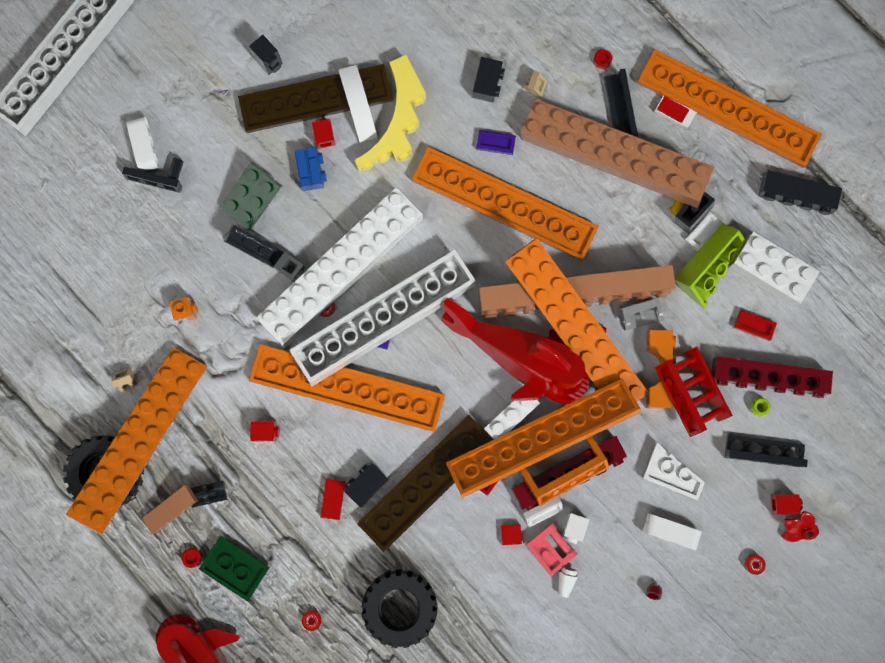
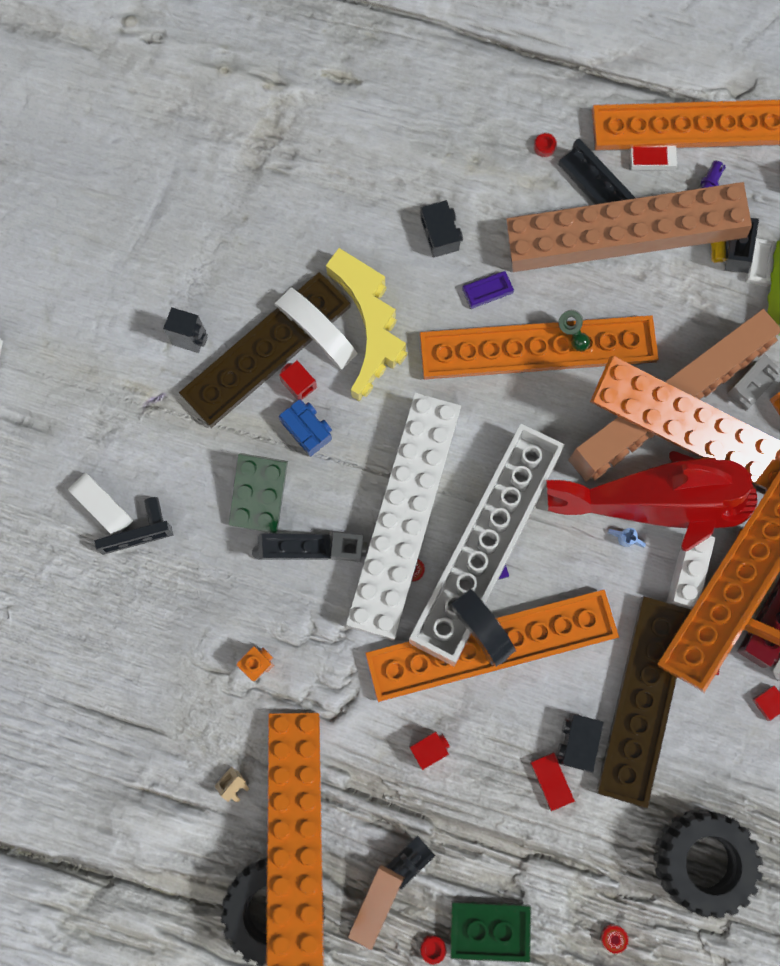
camera: 30 degrees left, 5 degrees down
(341, 371) = (484, 627): none -> black arch
(484, 369) = (627, 537): none -> light blue piece
(534, 215) = (580, 341): none -> dark green plate
(536, 84) = (495, 206): tan tile -> none
(704, 153) = (713, 175): none -> dark purple pin

